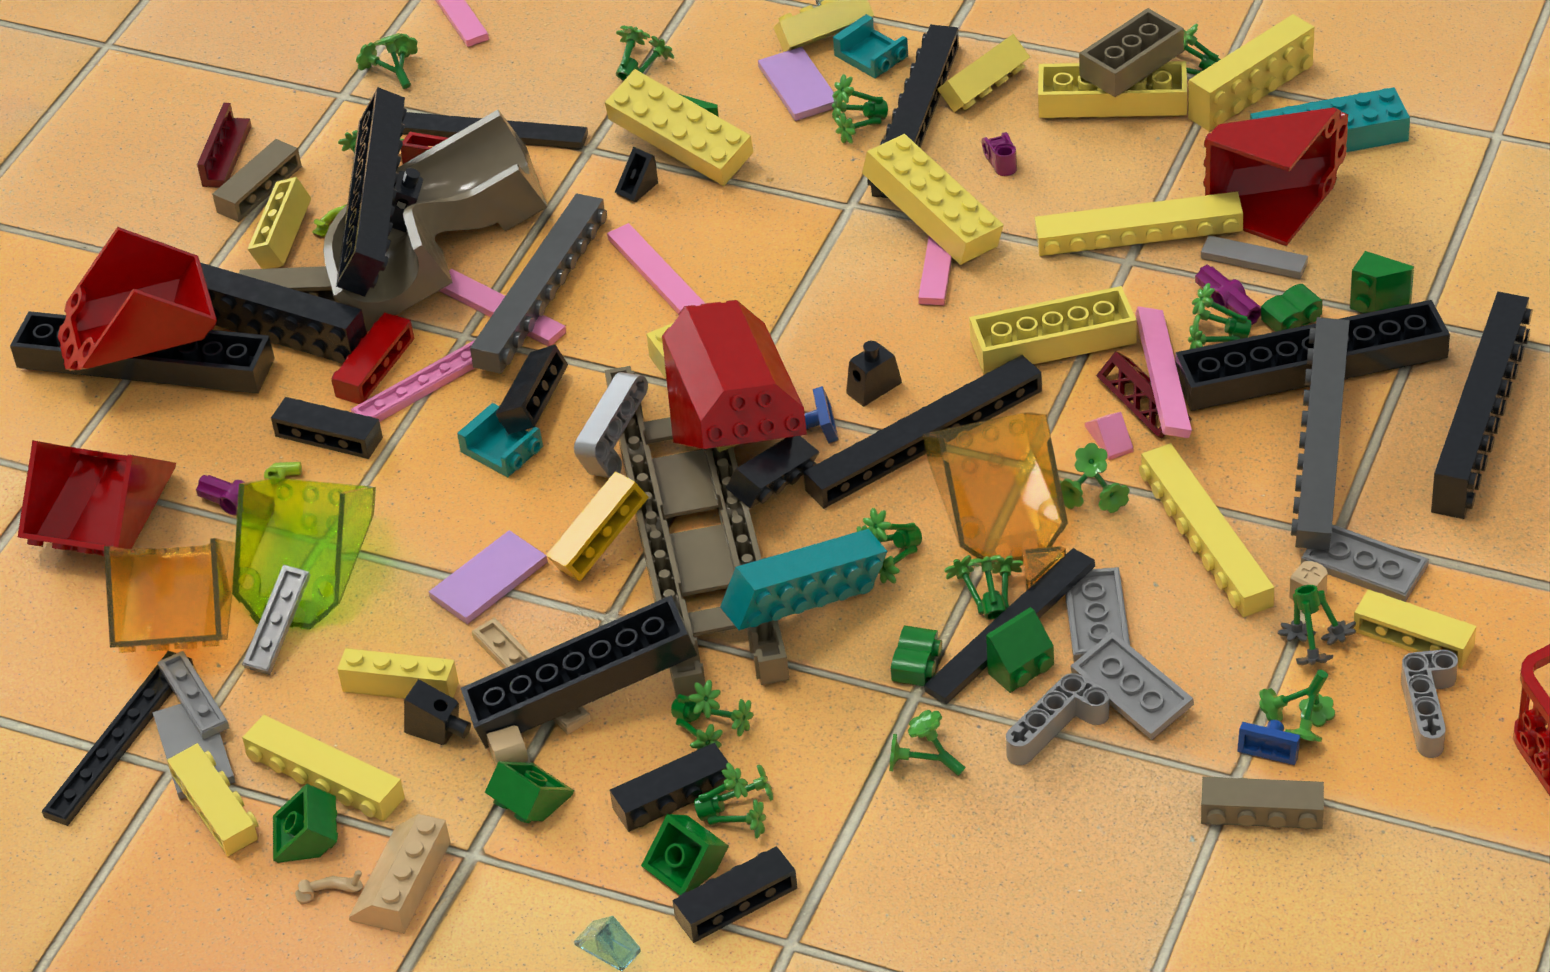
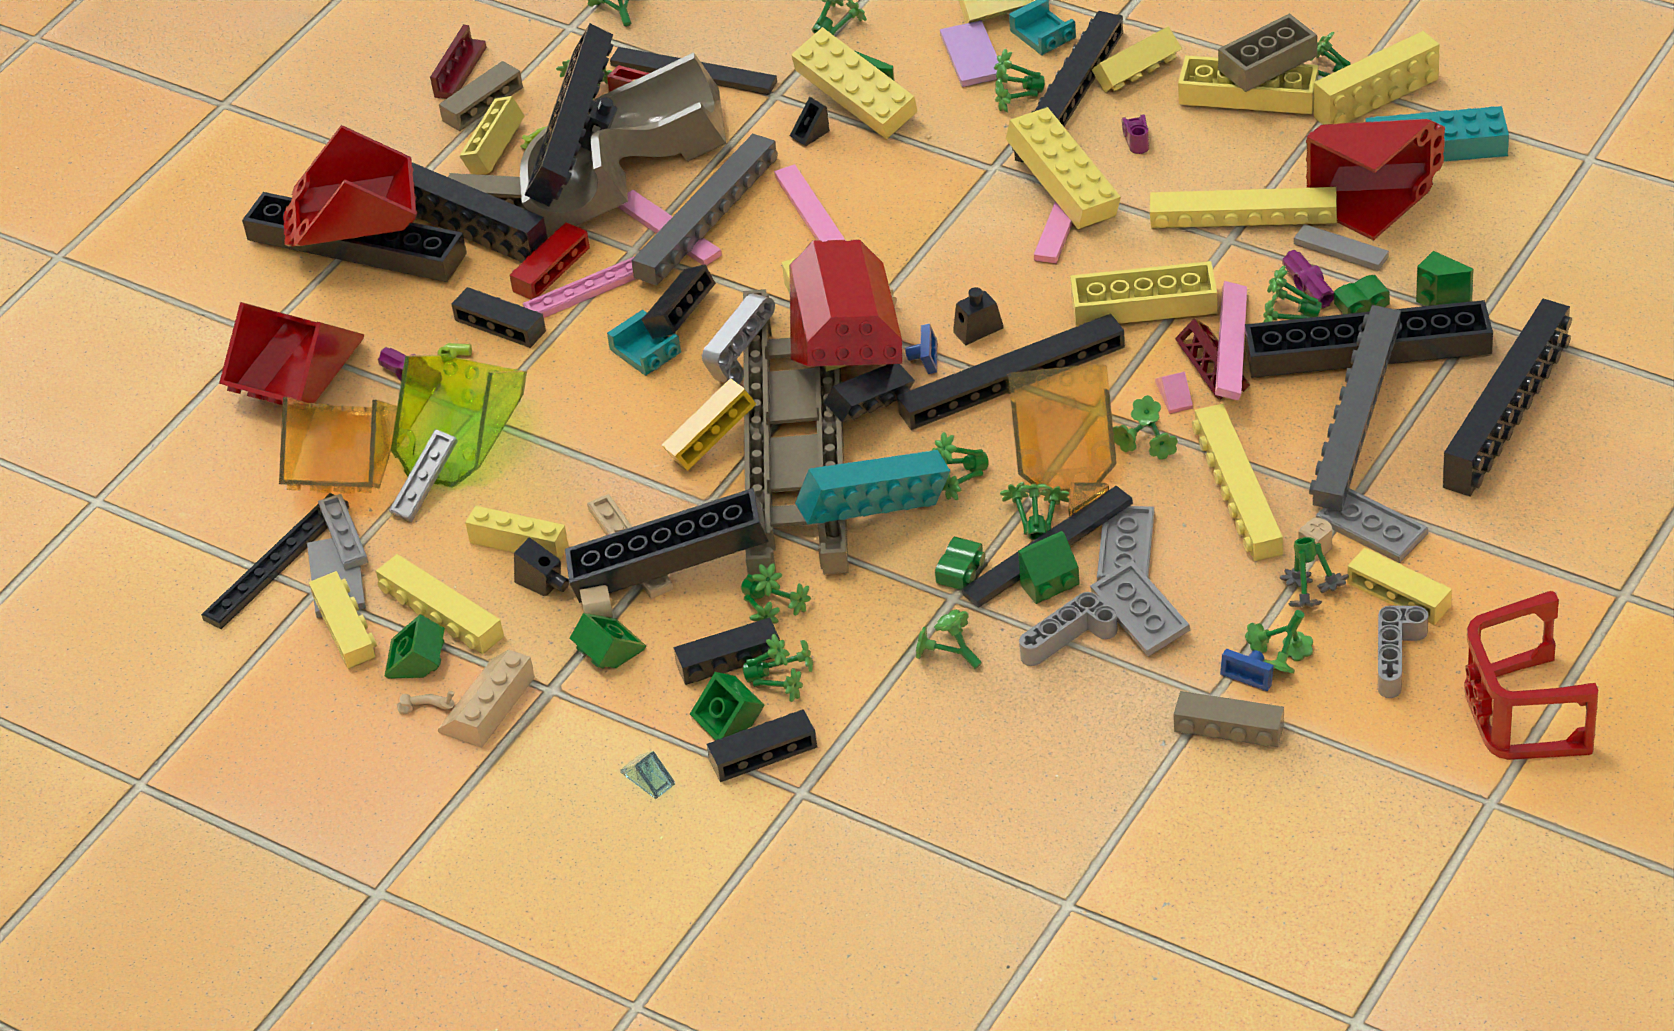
camera: 10 degrees right, 0 degrees up
(488, 577) = (610, 458): lavender tile -> none

